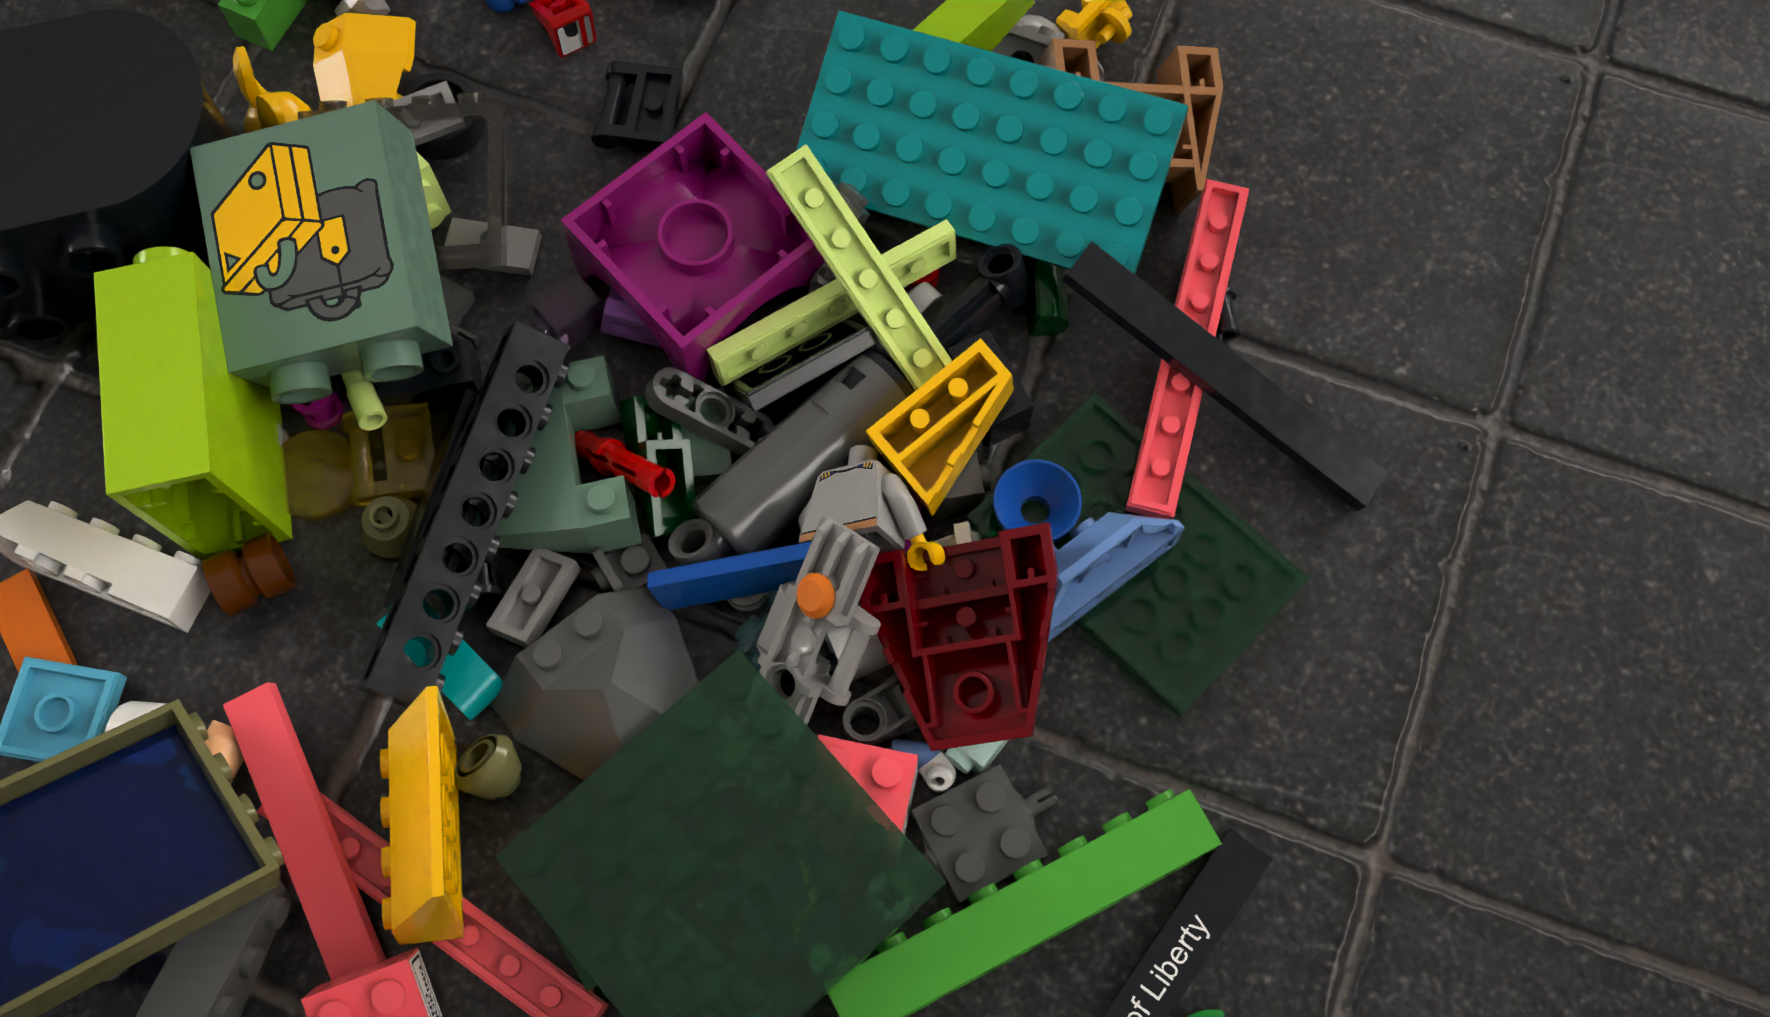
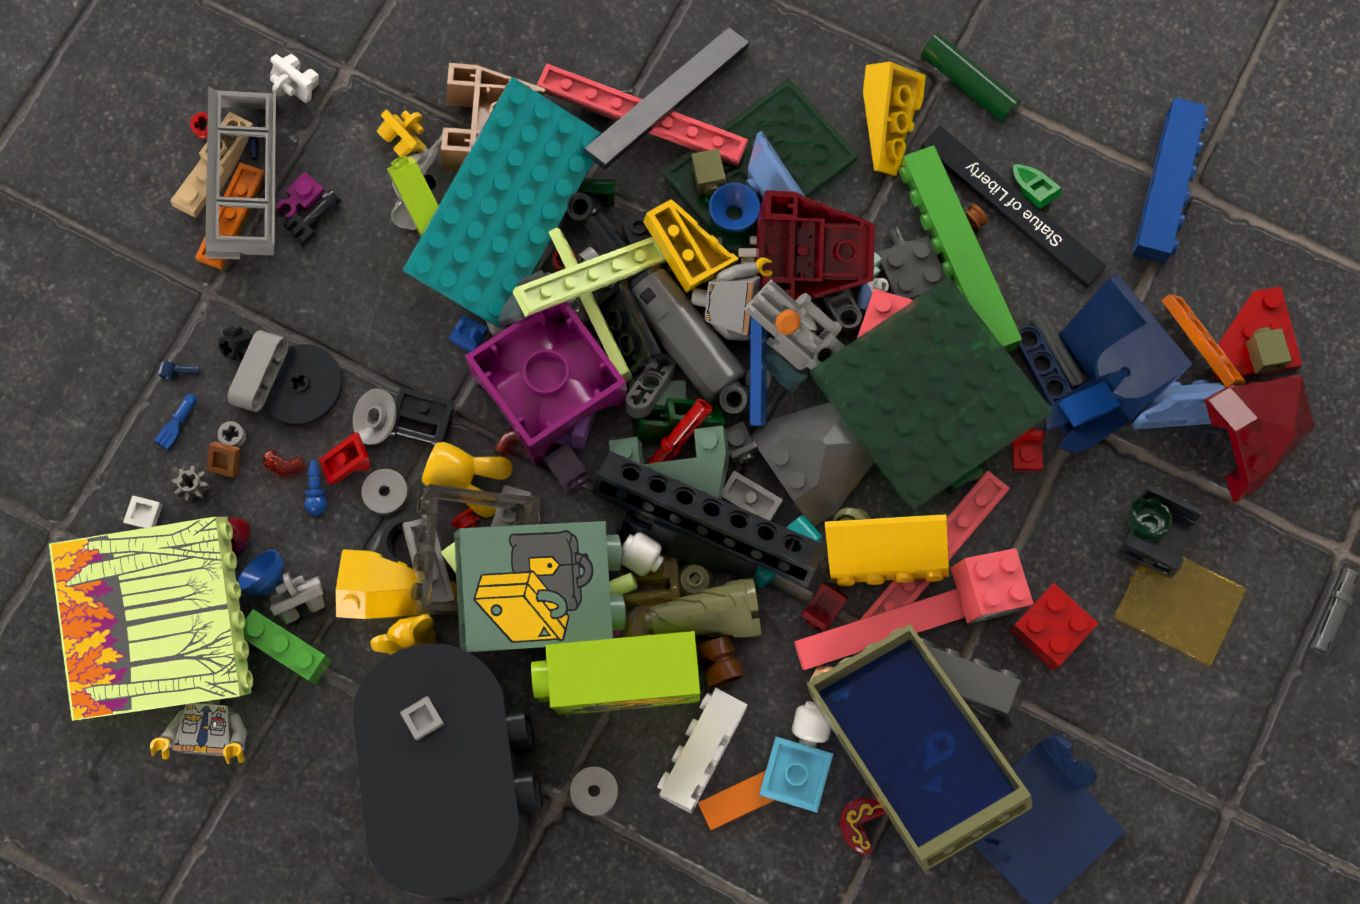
camera: 80 degrees left, 5 degrees up
(45, 403) = (580, 791): none -> light grey piece
(73, 91) = (422, 718): none -> light grey plate
(324, 554) = (713, 612): none -> olive cone
(342, 732) = (824, 607): none -> dark red bracket
(416, 425) = (641, 554): none -> white head
(473, 184) = (465, 520): none -> red bush
(520, 62) = (376, 483): none -> light grey piece
(548, 150) = (456, 468): none -> yellow piece
(632, 42) = (374, 416): none -> light grey dish
(776, 145) = (468, 334): none -> blue tile
(1097, 939) = (976, 217): none -> dark orange bush
(1099, 455) = (708, 171): none -> olive brick
(1287, 763) = (890, 101): none -> yellow wedge
(1383, 911) = (970, 77): none -> dark green brick

